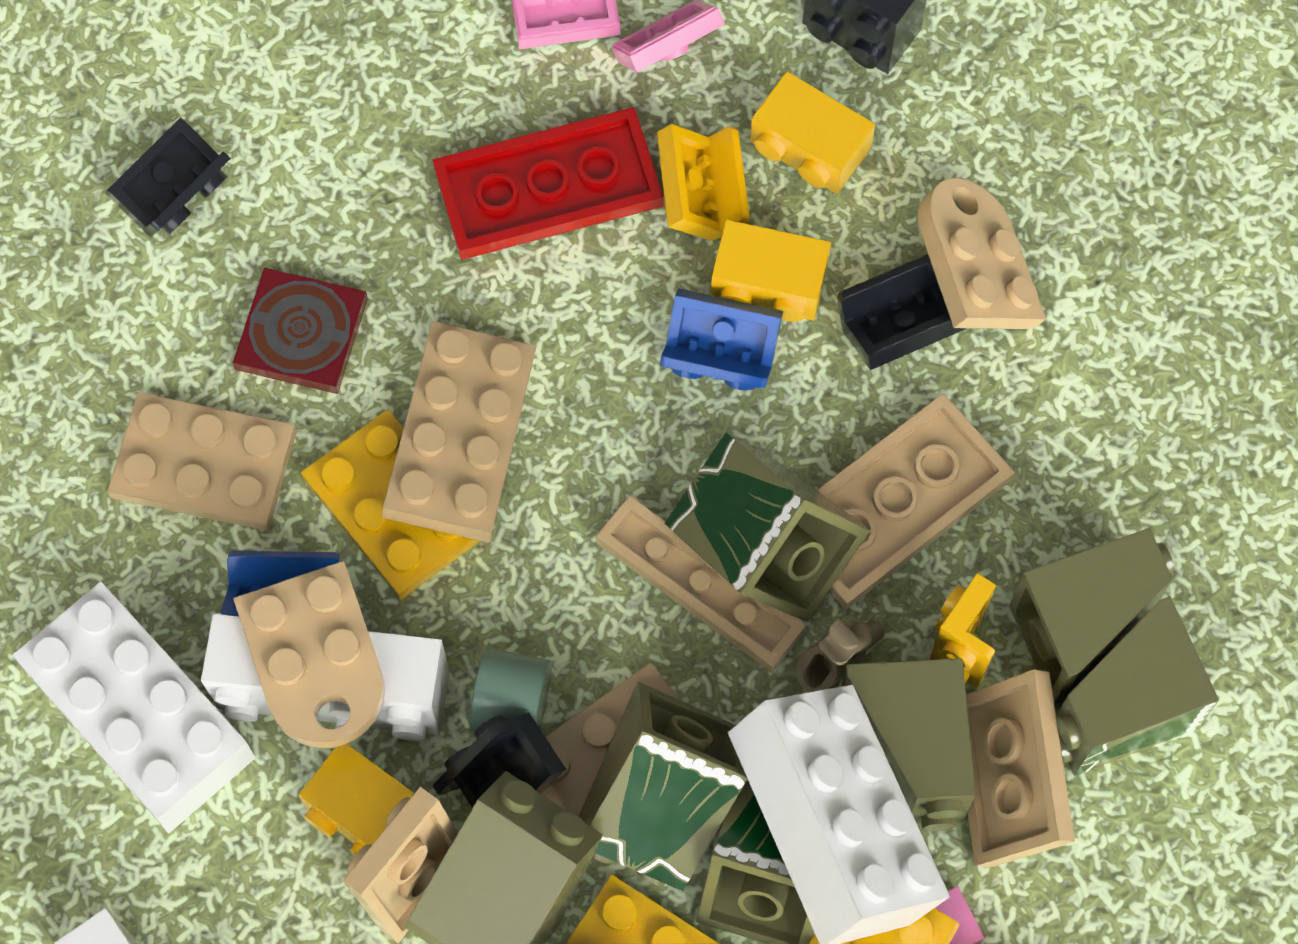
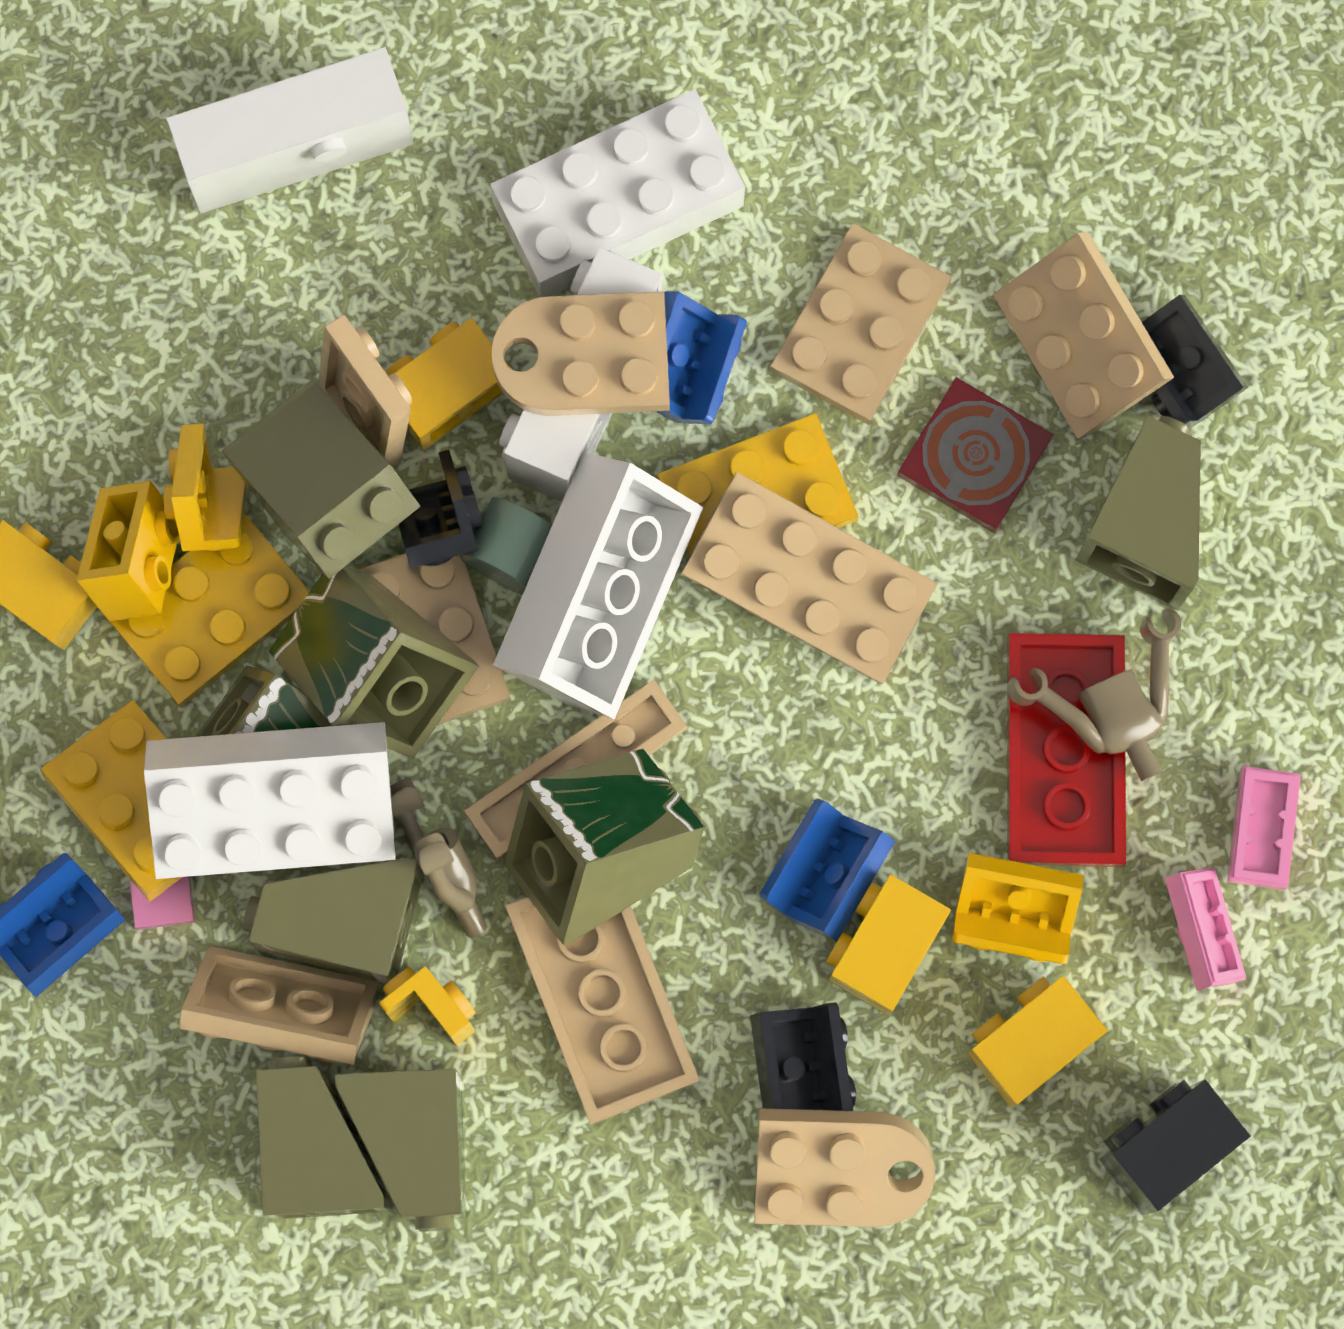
camera: 105 degrees right, 10 degrees up
(166, 260) = (1083, 335): none -> tan plate
(317, 156) = (1152, 516): none -> olive slope
(503, 139) = (1116, 707): none -> dark tan piece
(527, 599) = (598, 585): none -> white brick

